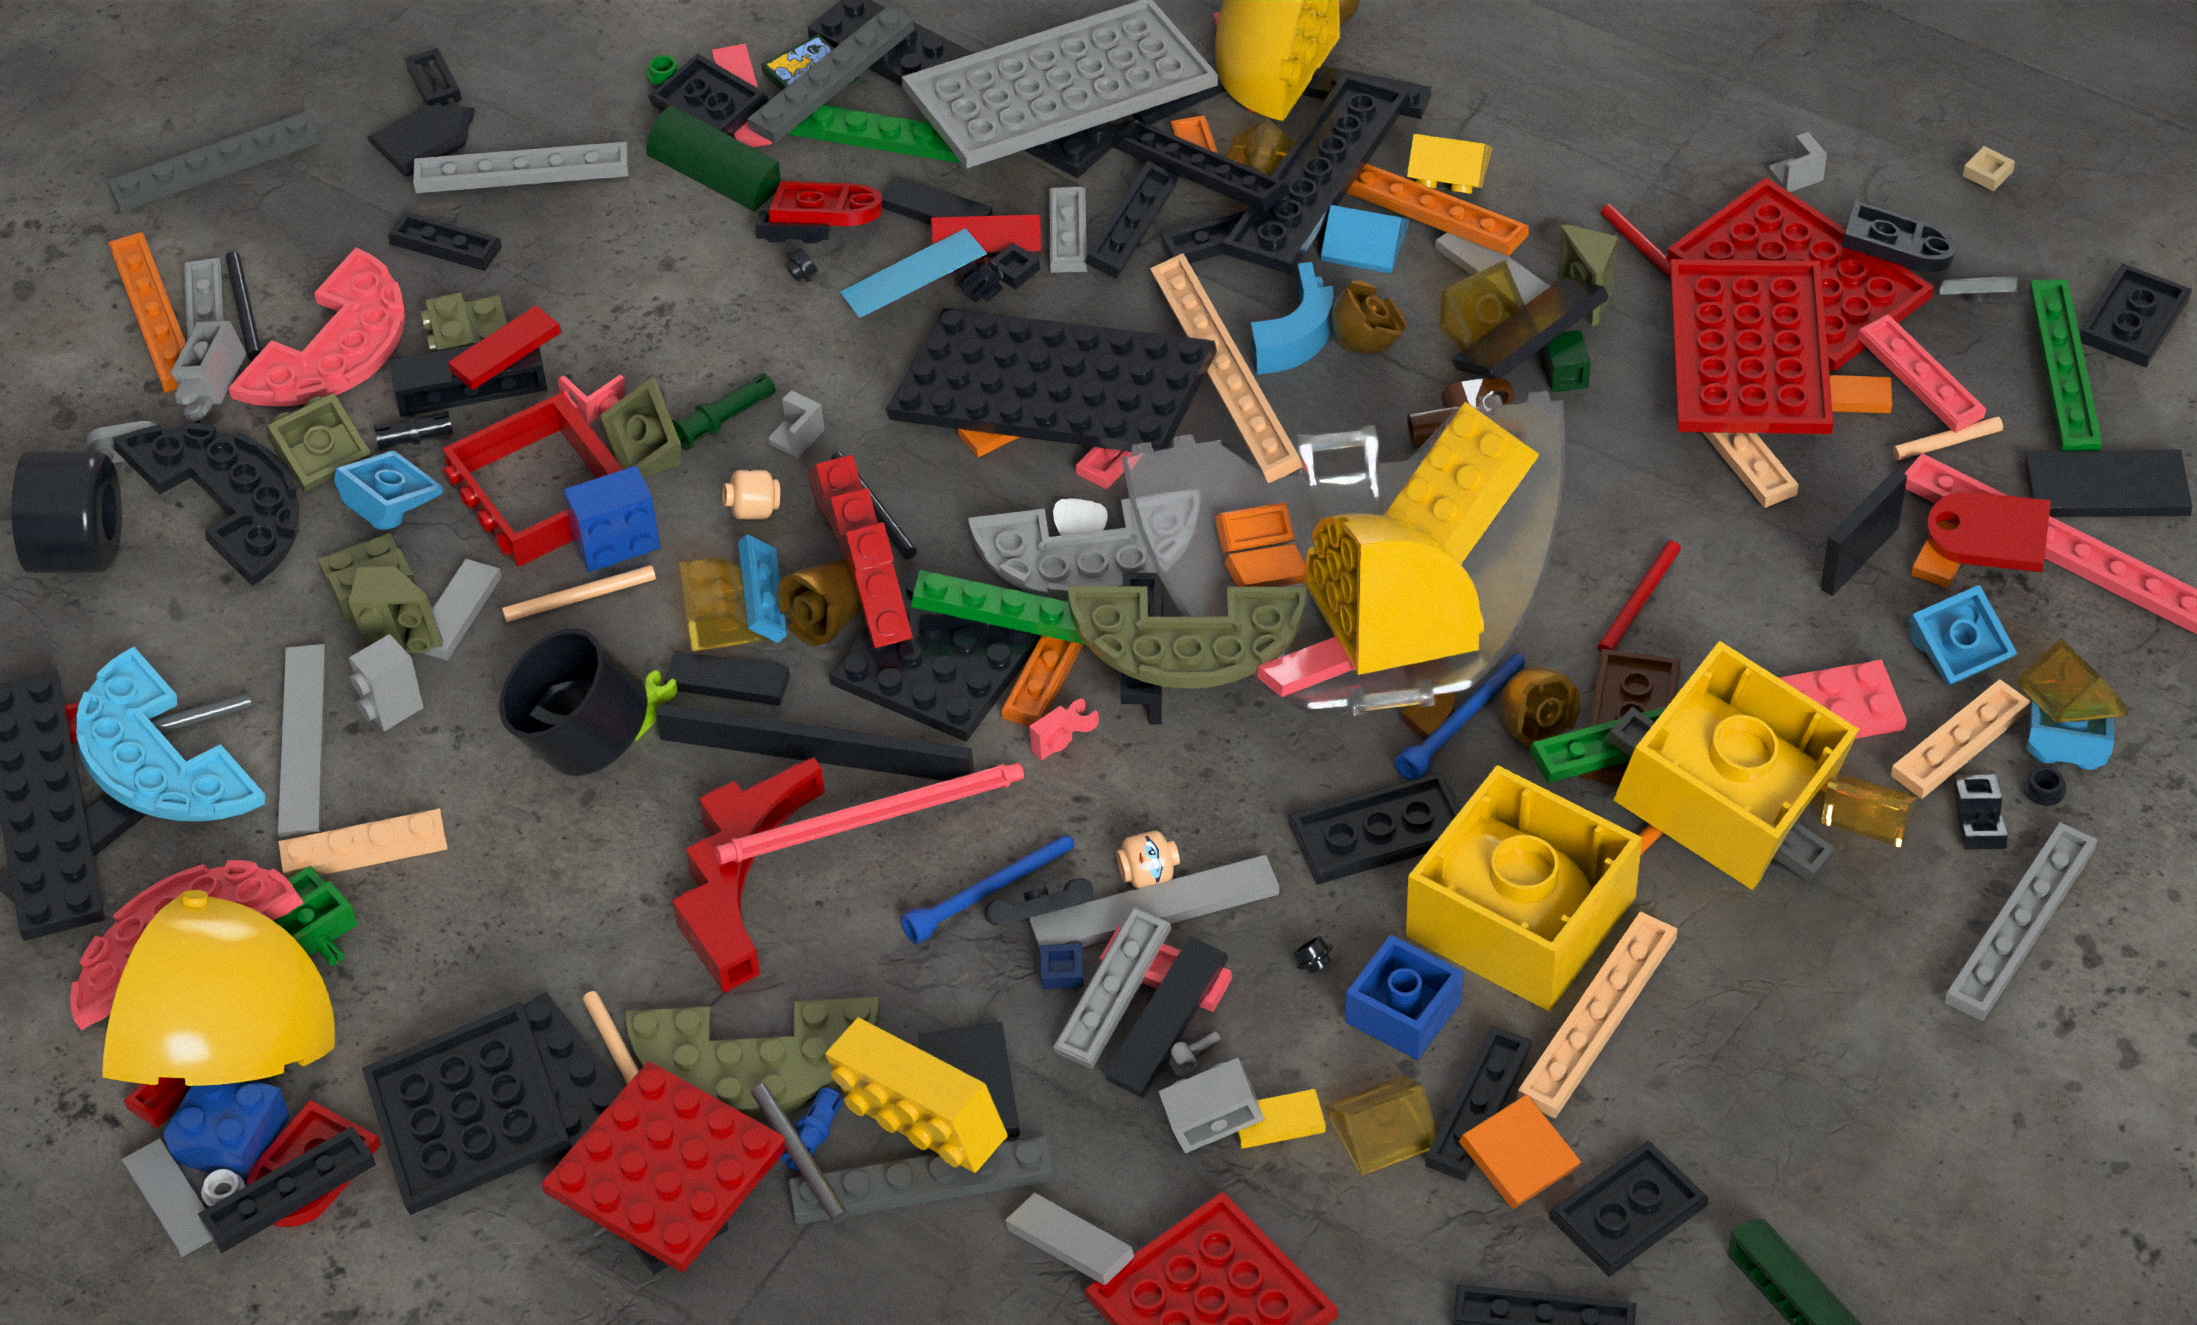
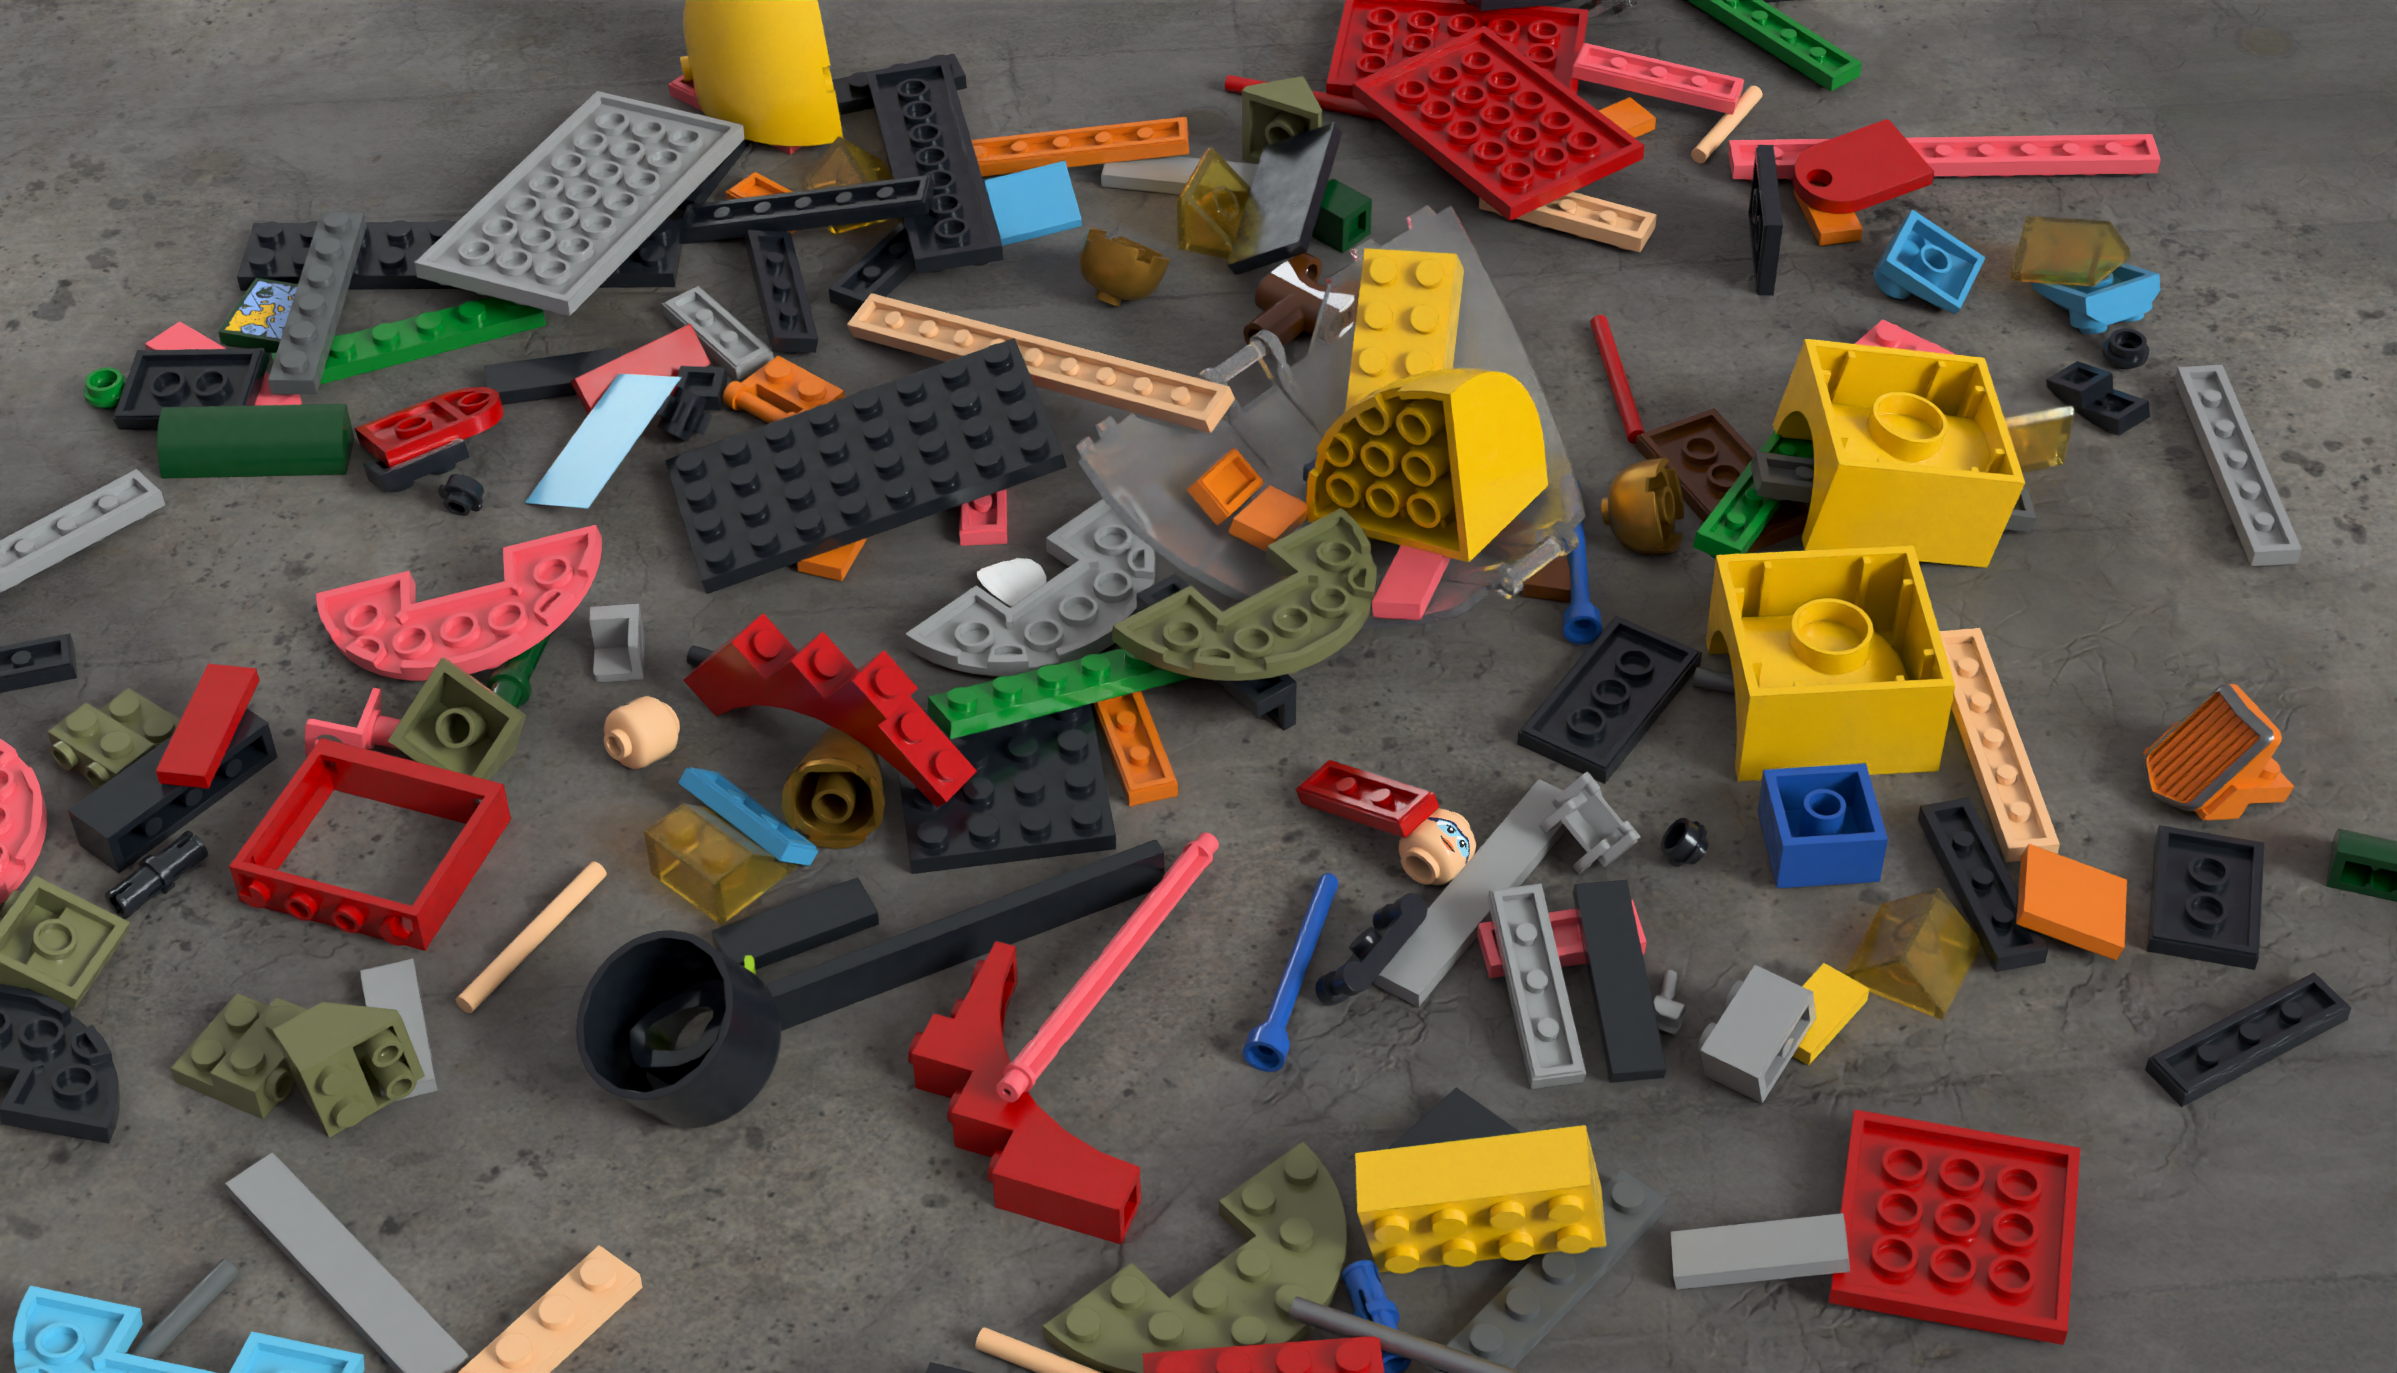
camera: 40 degrees left, 5 degrees down
(384, 488) = (187, 950): dark azure slope -> none
(385, 683) = (410, 1142): light grey brick -> none
(612, 518) = (514, 831): blue brick -> none
(719, 366) = (474, 629): none -> coral plate
(1055, 729) = (1211, 783): coral plate -> none
(1061, 966) = (1457, 997): dark blue plate -> none
(1072, 294) = (783, 386): none -> orange plate
(1133, 800) = (1367, 798): none -> red tile
(1258, 903) = (1591, 823): none -> light grey piece
(1300, 335) = (1056, 287): dark azure arch -> none
(1448, 162) = (1045, 101): yellow slope -> none
(1732, 1122) = (2218, 758): none -> orange piece
(1960, 739) = (2019, 347): light nougat plate -> none
(2110, 482) = (1899, 89): black tile -> none

